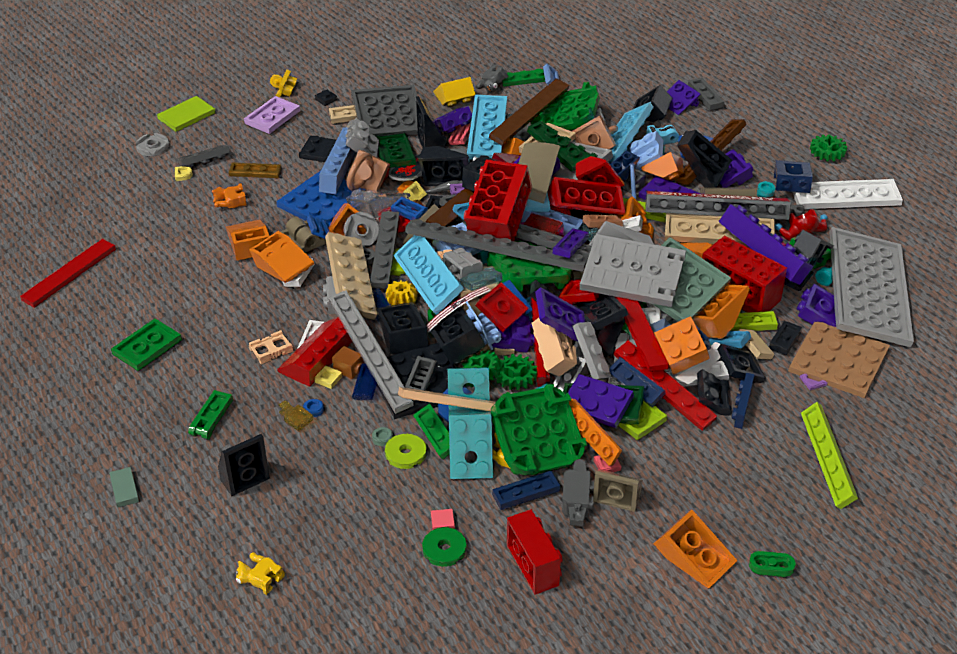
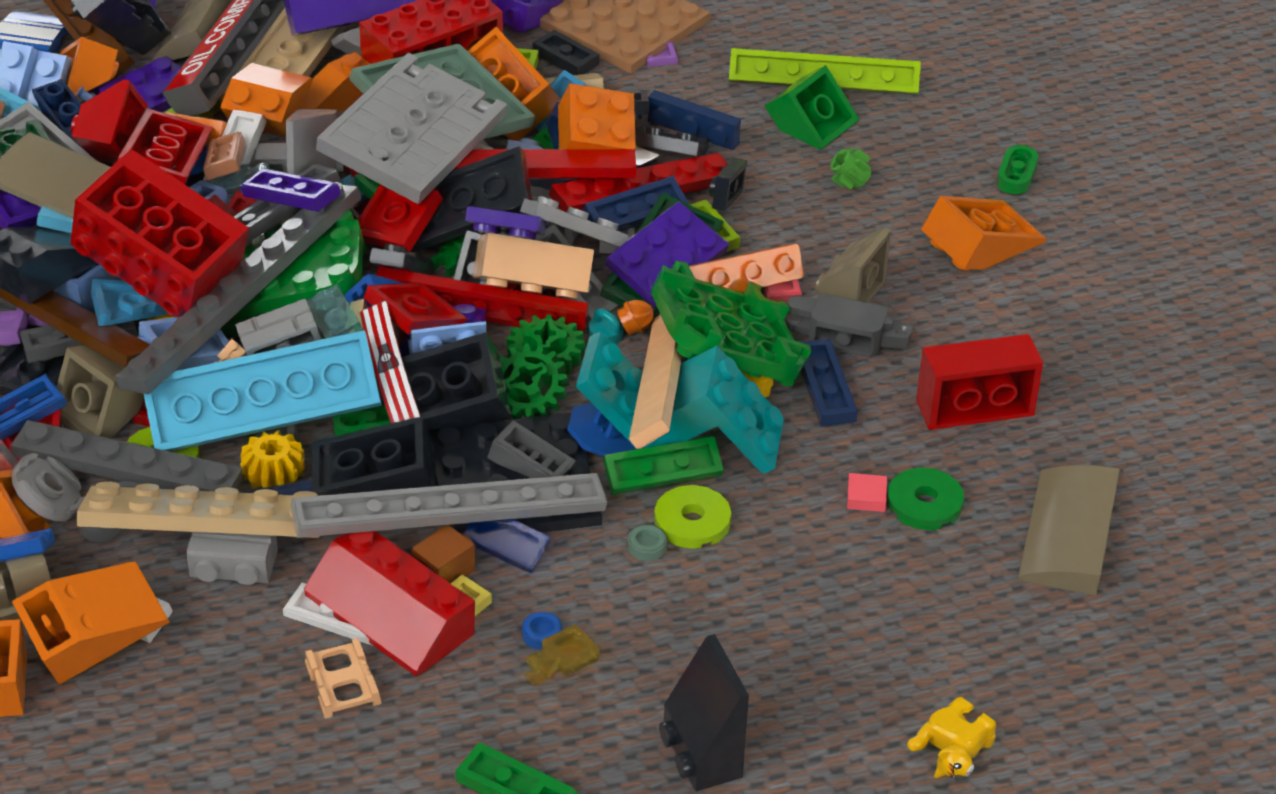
camera: 80 degrees left, 0 degrees up
(435, 617) = (1069, 527): none -> dark tan slope
(661, 224) = (267, 92): none -> orange slope
(681, 421) = (728, 184): none -> black plate
(727, 477) = (851, 168): none -> bright green gear
(782, 454) = (813, 109): none -> green slope

